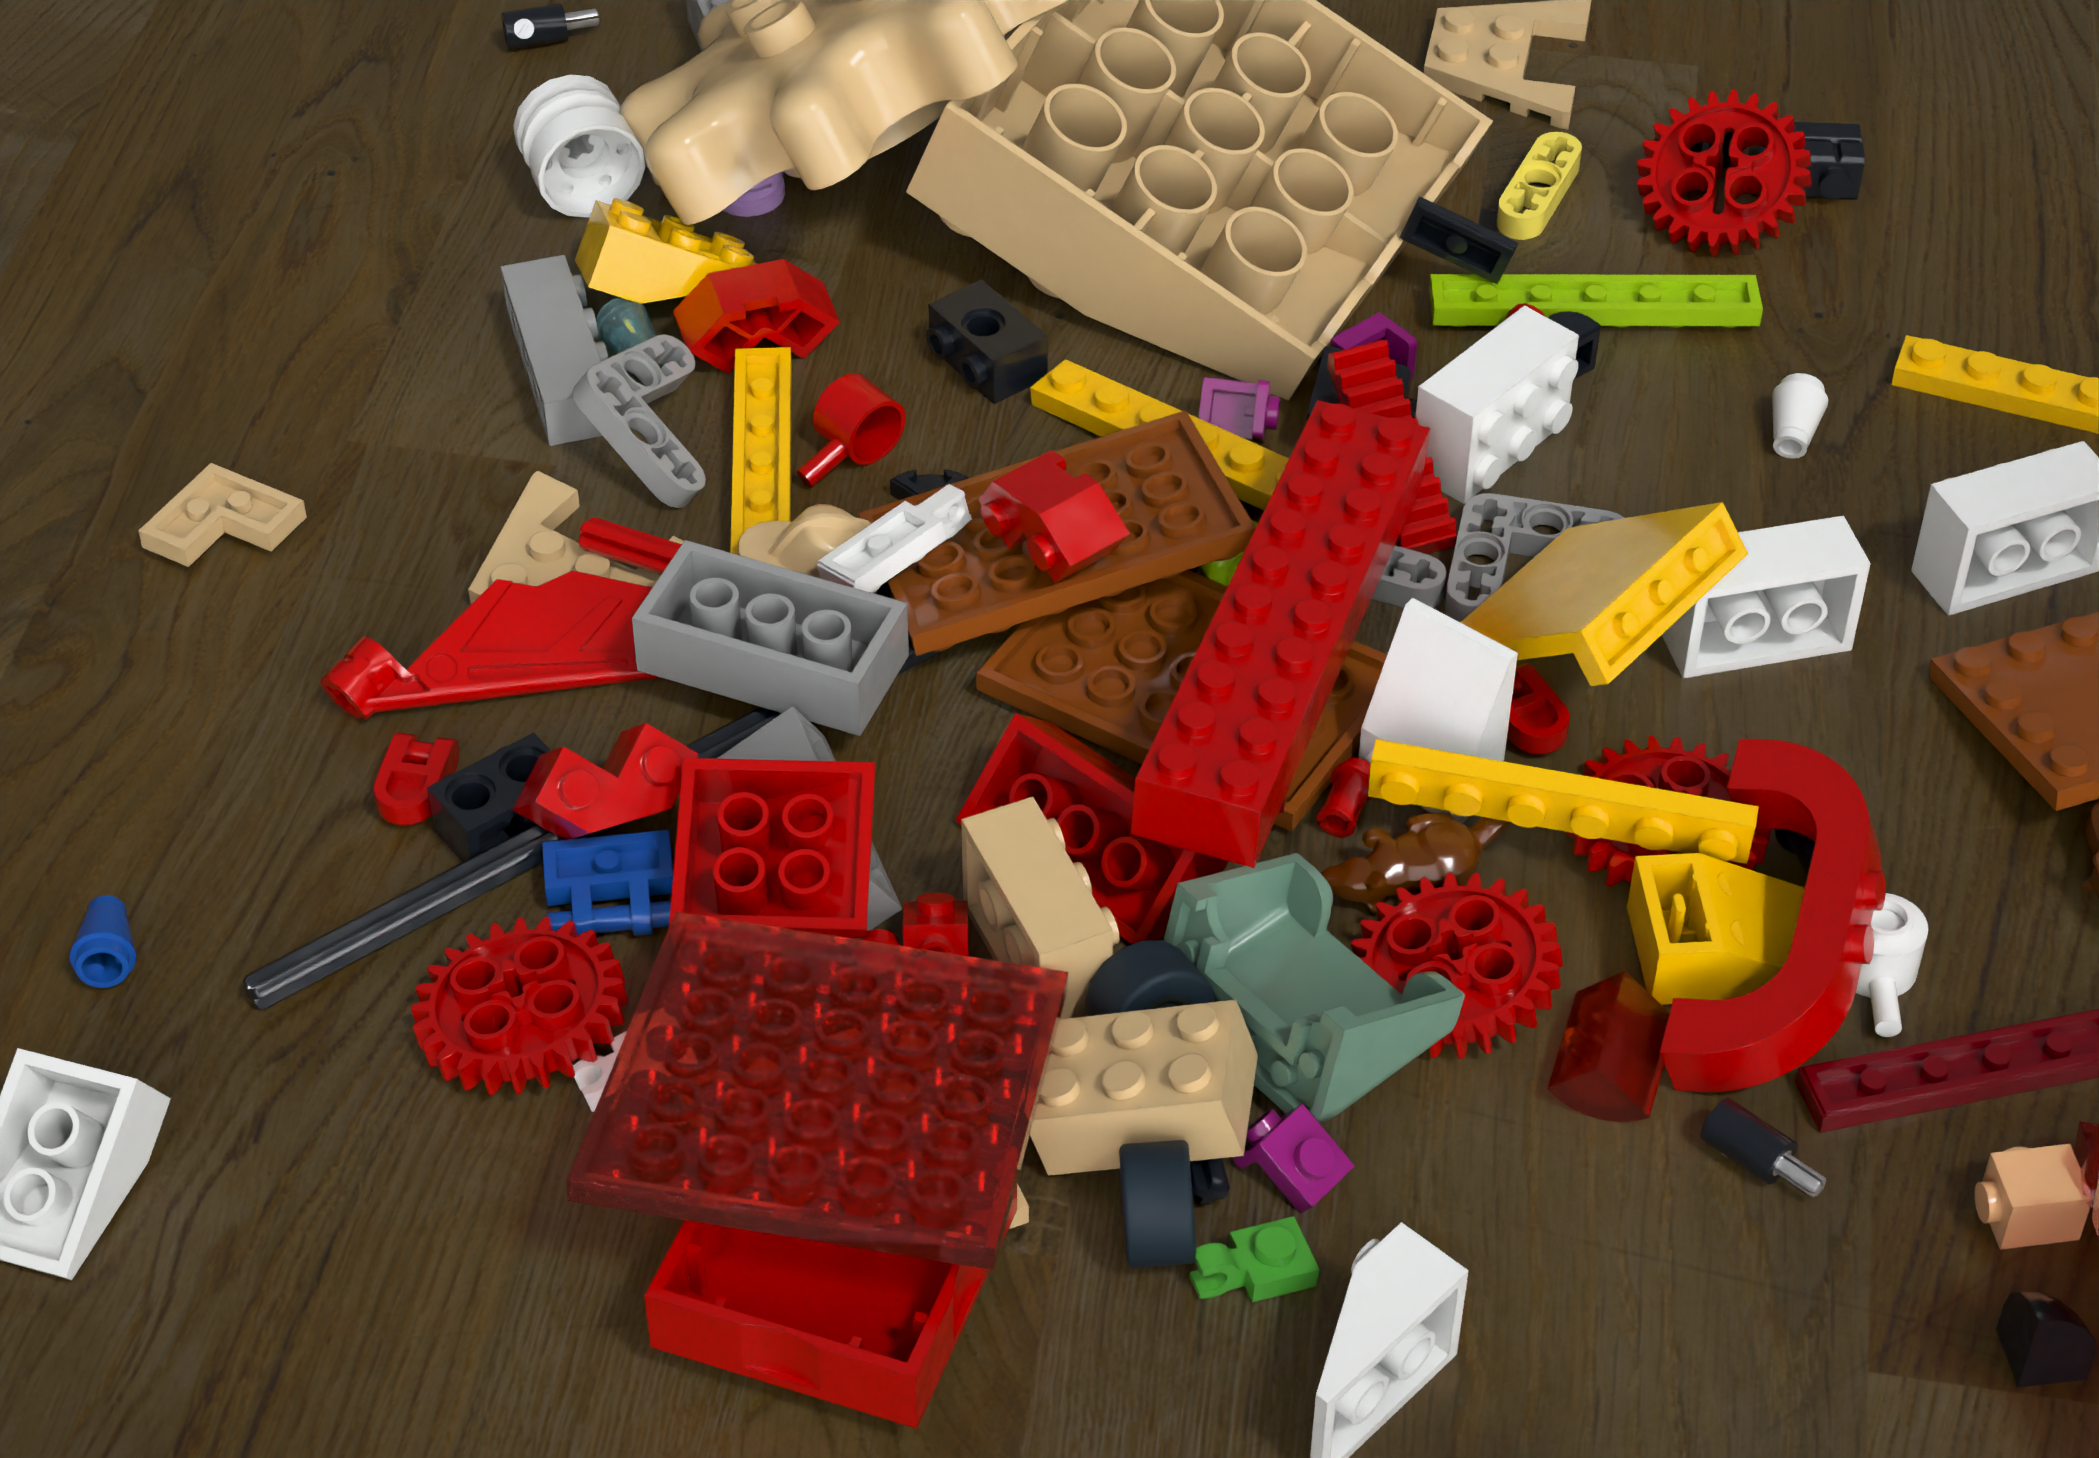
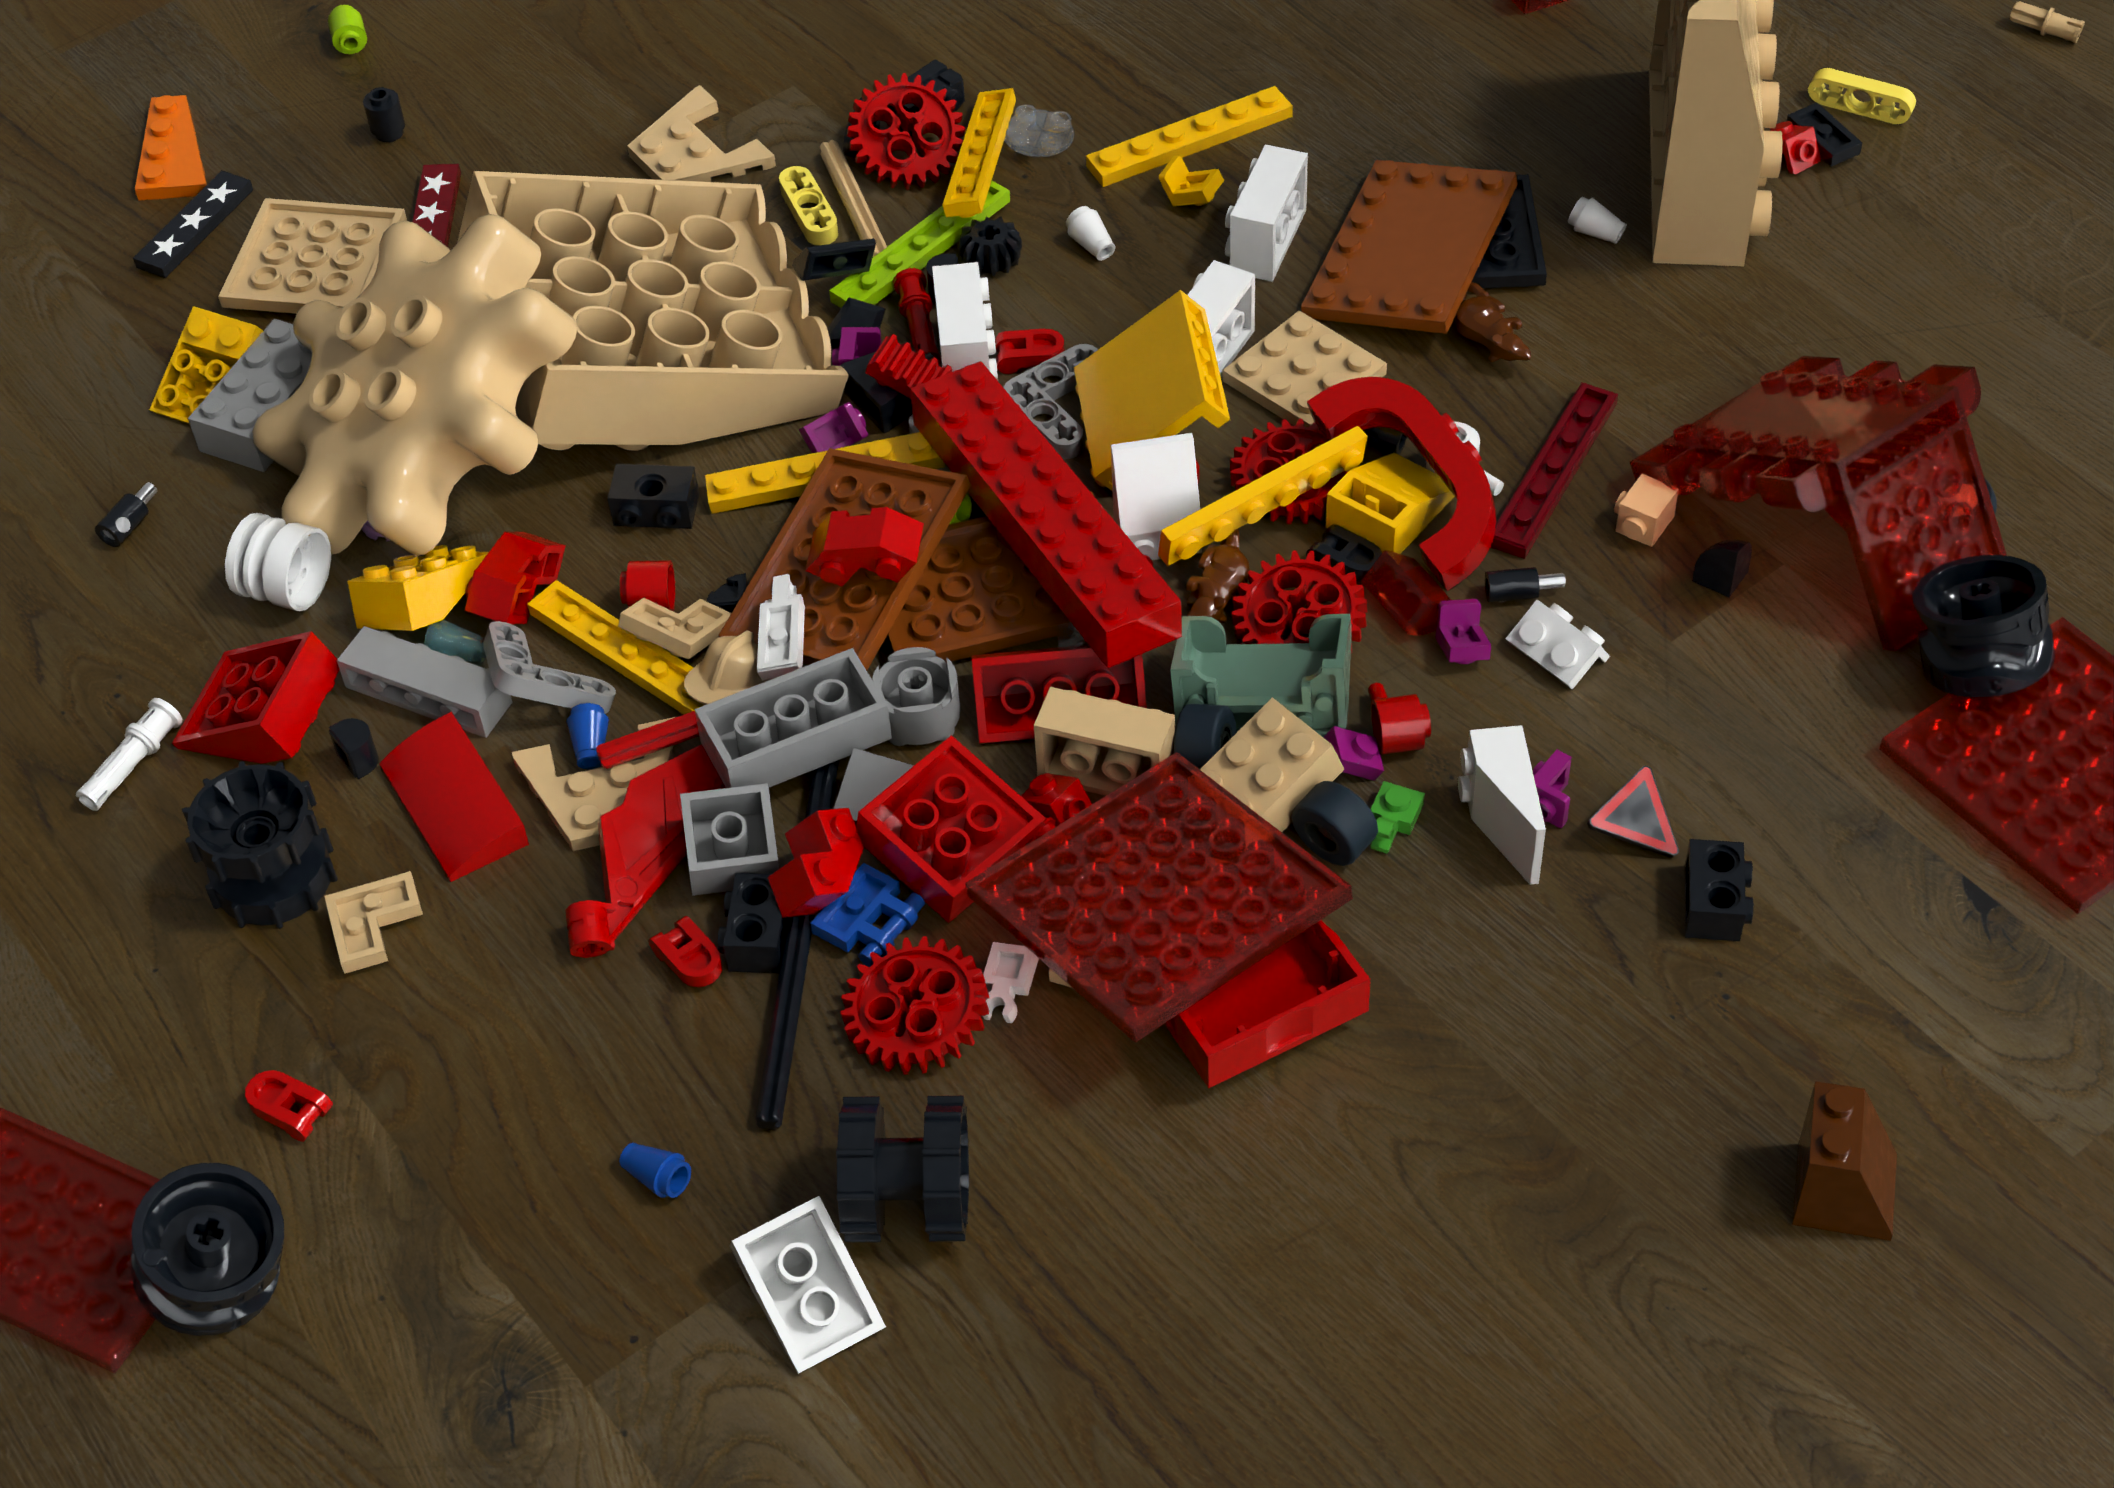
camera: 45 degrees left, 5 degrees up
(206, 367) = (260, 844): none -> black piece
(246, 1131) = (903, 1169): none -> black piece
(281, 218) = (140, 740): none -> white pin
(412, 262) = (260, 700): none -> red slope
(421, 359) = (354, 746): none -> black brick
(440, 473) = (453, 798): none -> red slope
(577, 690) = (728, 835): none -> light grey brick
(626, 500) = (587, 730): none -> blue cone
(816, 475) = (679, 633): none -> tan plate
(939, 716) = (919, 696): none -> light grey brick
(1392, 1165) = (1398, 721): none -> red piece
(1425, 320) = (854, 314): none -> black piece
(1463, 1385) = (1550, 781): none -> magenta bracket
(1558, 477) = (1026, 348): none -> red plate
(1592, 209) = (851, 194): none -> tan axle
(1600, 945) = (1356, 551): none -> black plate
(1607, 1138) = (1460, 631): none -> magenta bracket
(1664, 350) = (991, 244): none -> black gear
(1710, 1248) = (1556, 644): none -> white bracket
(1775, 248) = (979, 153): none -> yellow plate
(1856, 712) = (1298, 364): none -> tan plate
(1888, 277) = (1039, 132): none -> clear dish
(1975, 435) = (1189, 187): none -> yellow bracket

